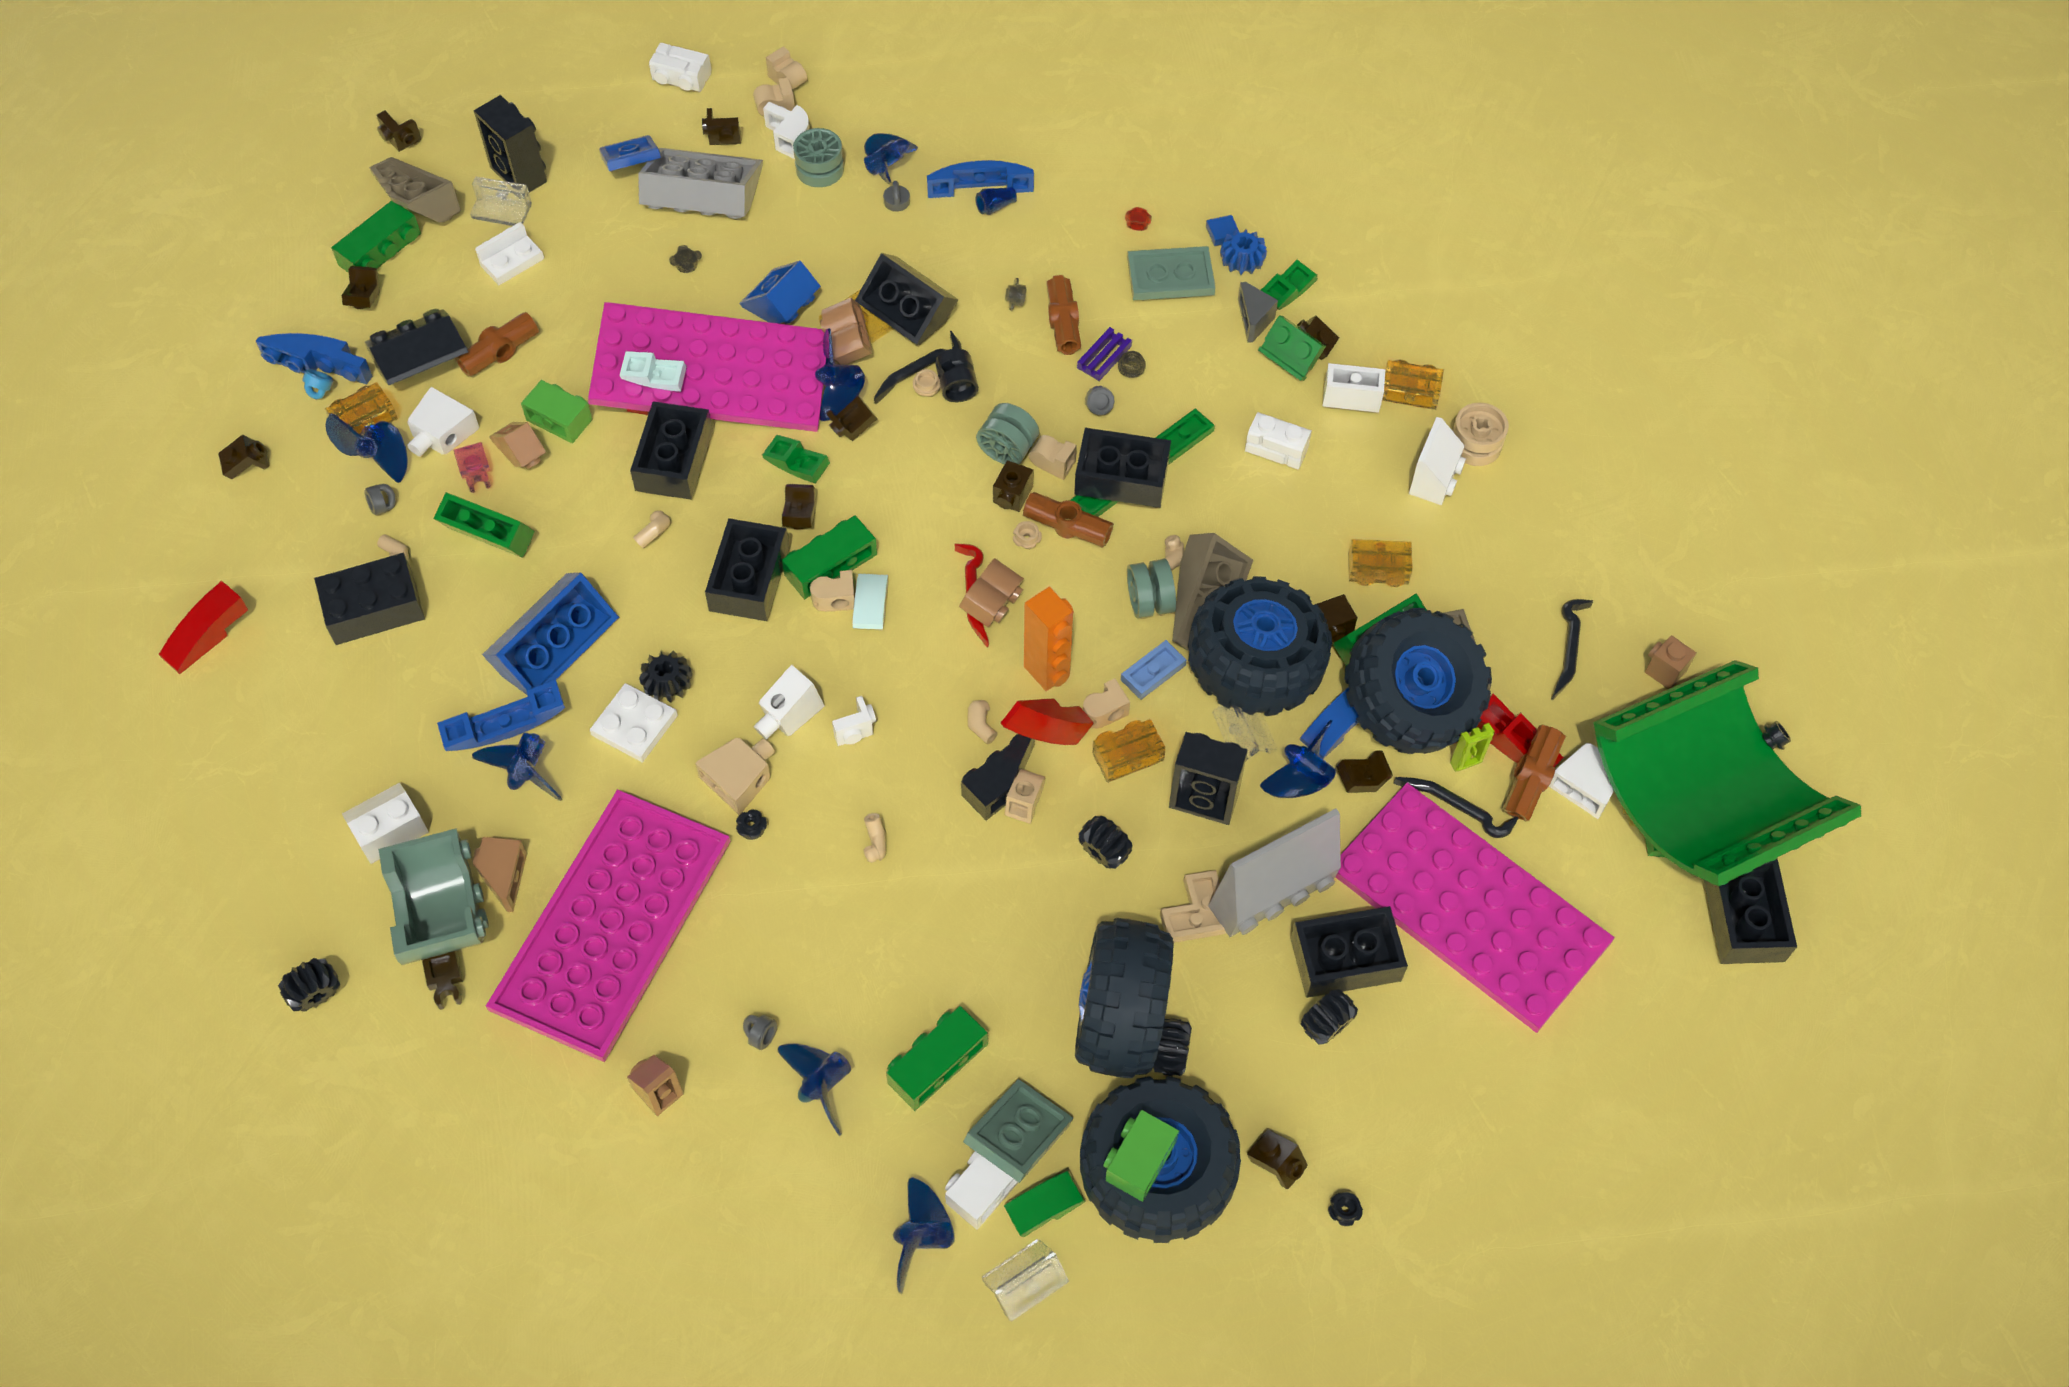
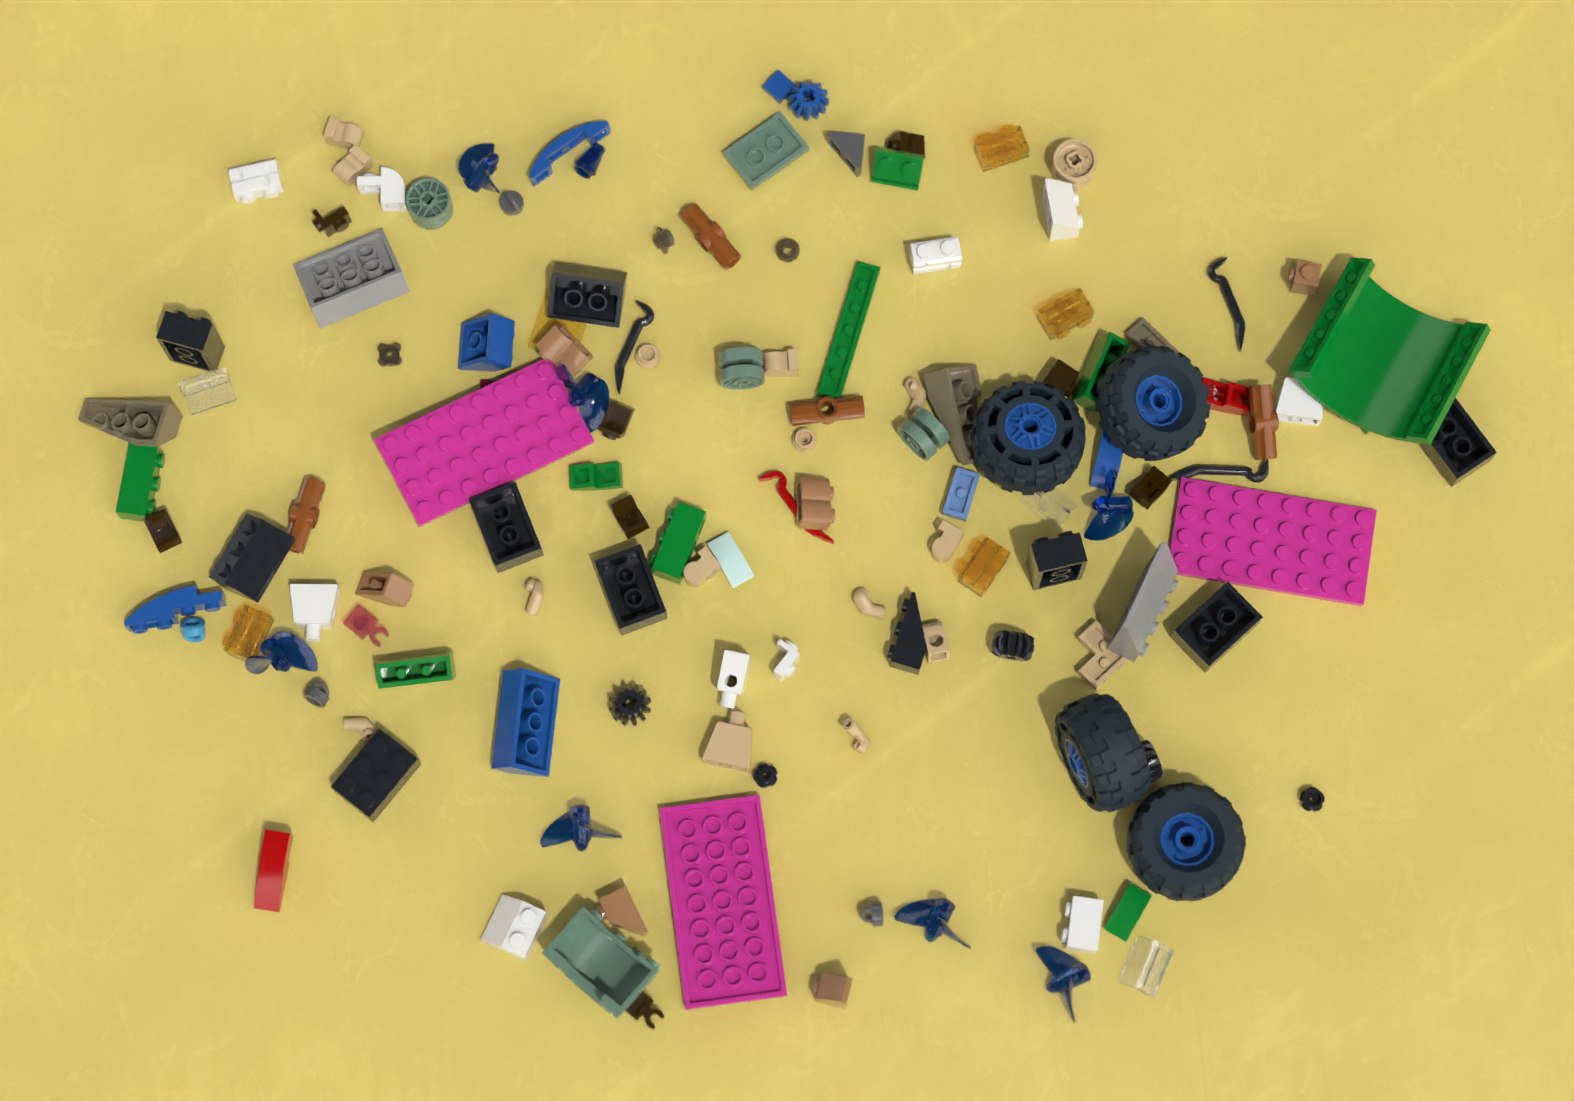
camera: 30 degrees left, 15 degrees up
(241, 455) = (187, 722): dark brown bracket -> none
(309, 984) = (560, 1068): black gear -> none
(400, 135) = (70, 377): dark brown bracket -> none
(503, 722) = (540, 805): blue slope -> none
(508, 254) = (251, 432): white bracket -> none
(557, 411) = (393, 544): bright green brick -> none
(629, 153) = (278, 287): blue tile -> none
(633, 722) = (630, 751): white plate -> none
(654, 373) = (453, 476): light aqua slope -> none
(936, 1057) = (998, 860): green brick -> none
(956, 375) = (665, 335): black wheel -> none
(1013, 486) = (770, 407): dark brown brick -> none
(1018, 1130) = (1085, 877): sand green plate -> none
(1048, 638) = (888, 524): orange brick -> none
(1048, 721) = (923, 582): red slope -> none
(1099, 400) = (785, 296): dark grey tile -> none
(1115, 339) = (762, 232): dark purple tile -> none
(1122, 467) = (844, 349): black brick -> none
(1138, 219) = (710, 115): clear red plate -> none
(1141, 1155) = (1183, 852): bright green brick -> none
(1279, 1158) = (1252, 792): dark brown bracket -> none
(1290, 284) = (858, 109): green slope -> none
(1329, 1016) = (1230, 679): black gear -> none
(1353, 387) = (964, 178): white brick -> none
(1473, 745) = (1213, 428): lime tile -> none
(1776, 735) = (1402, 293): black plate -> none

